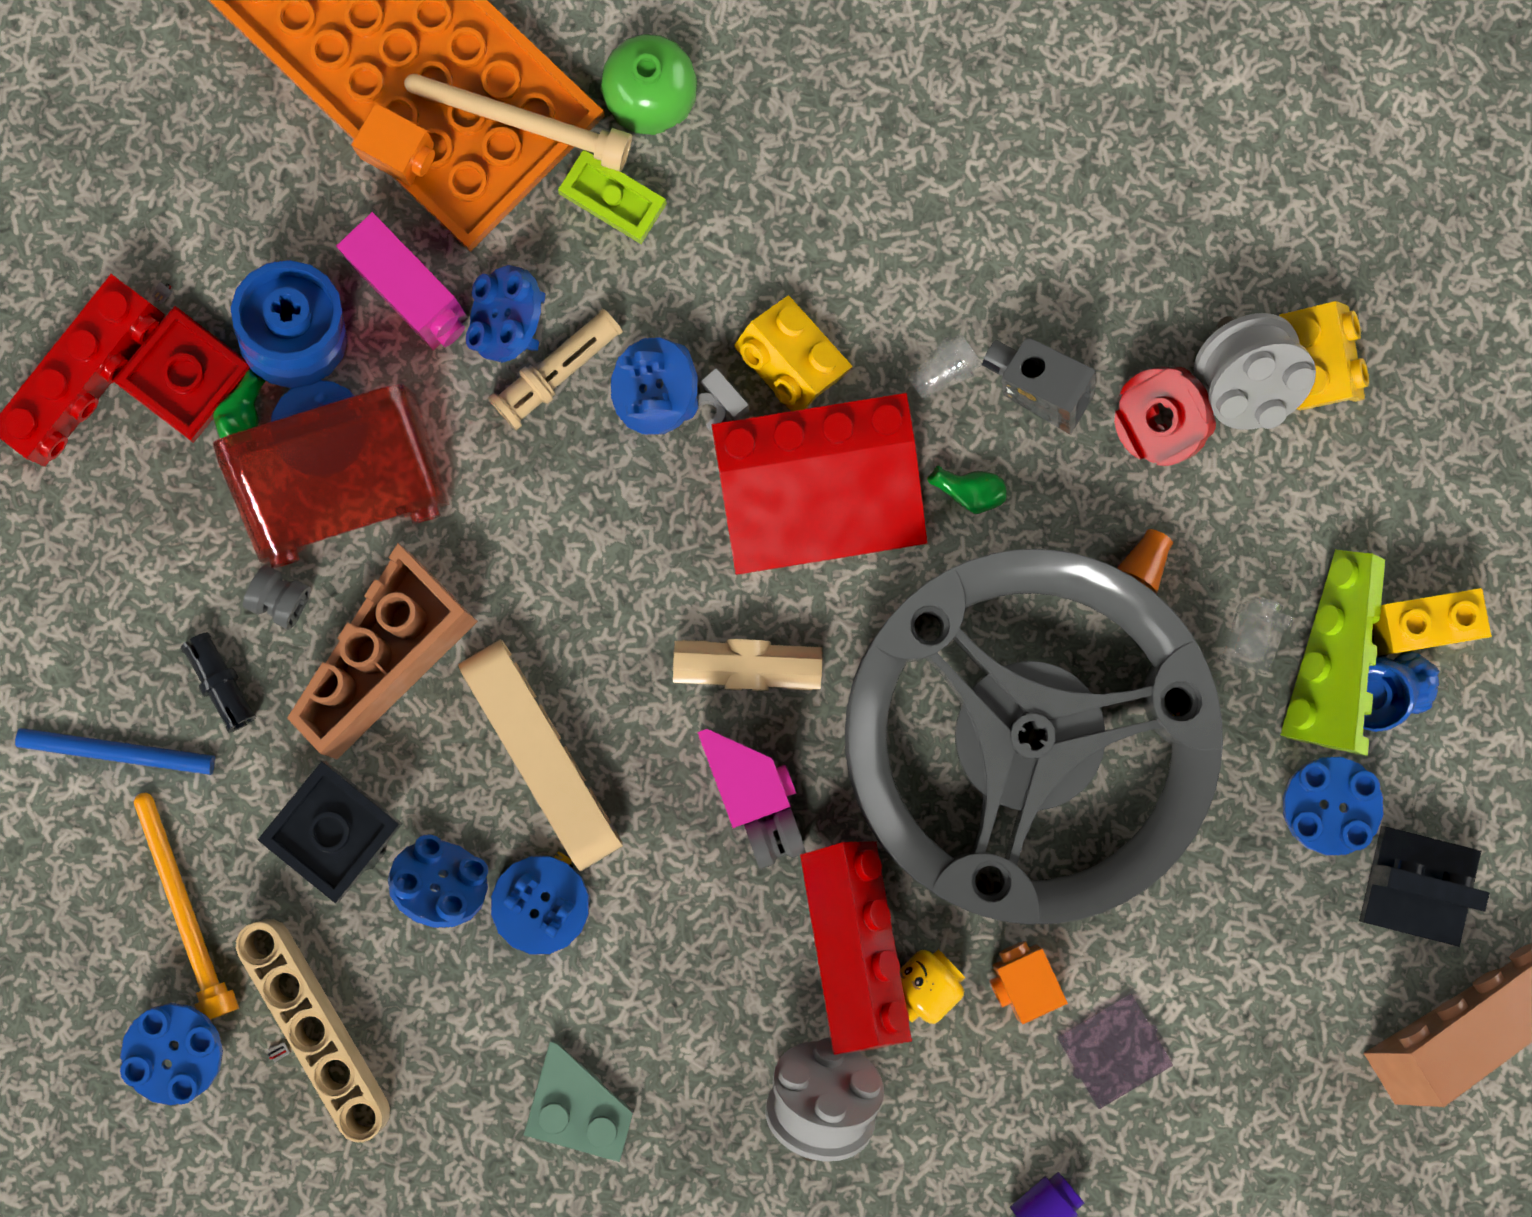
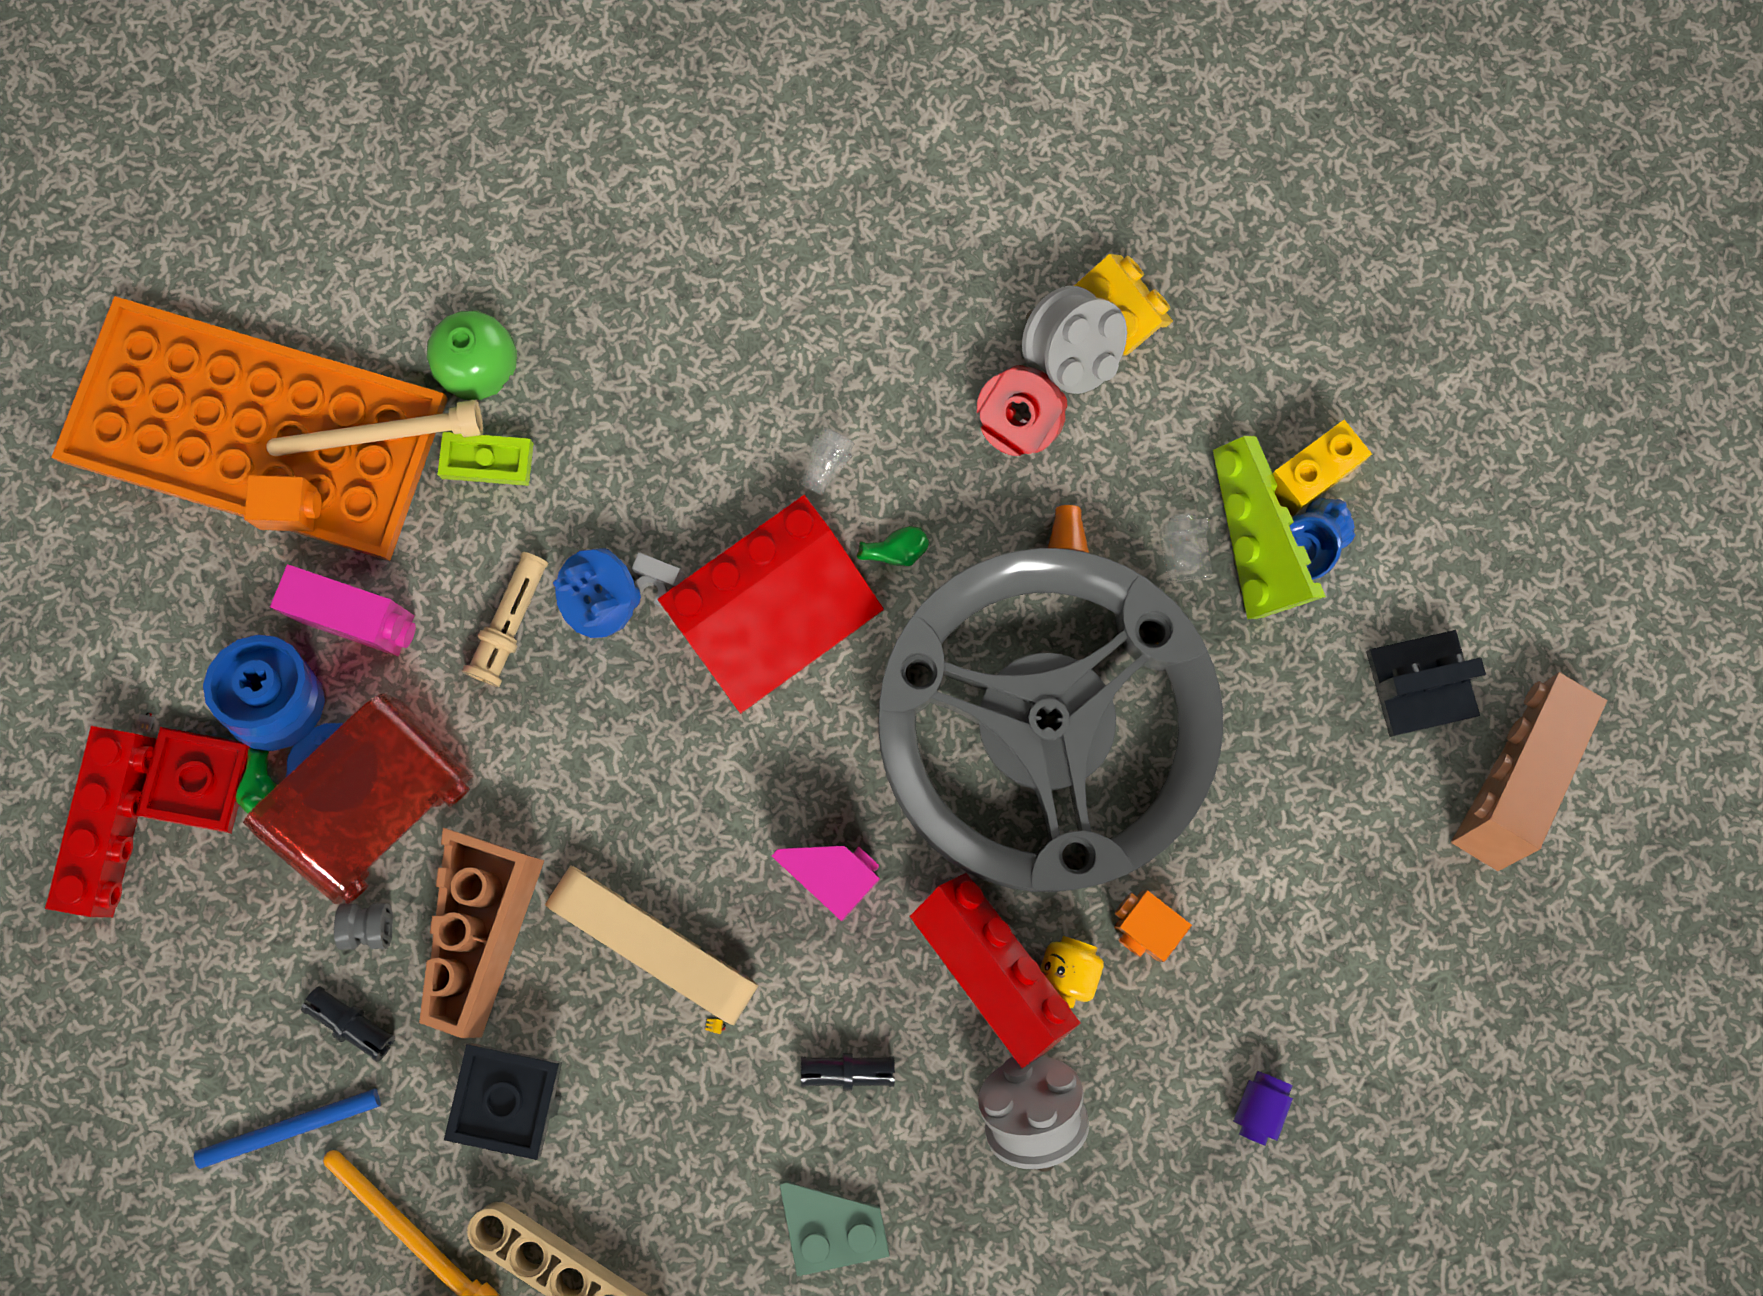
camera: 25 degrees left, 5 degrees down
(418, 871) = (596, 1095): blue plate -> none
(504, 314) = (442, 596): blue plate -> none
(521, 891) = (735, 1075): blue plate -> none
(666, 970) = (848, 1071): none -> black pin
(747, 665) = (786, 782): tan piece -> none
(764, 842) = (874, 921): dark grey wheel -> none
(791, 354) = (695, 512): yellow bracket -> none
(1057, 394) = (911, 431): dark grey torso -> none
(1114, 1051) = (1250, 946): piece -> none
(1336, 782) = (1312, 633): blue plate -> none

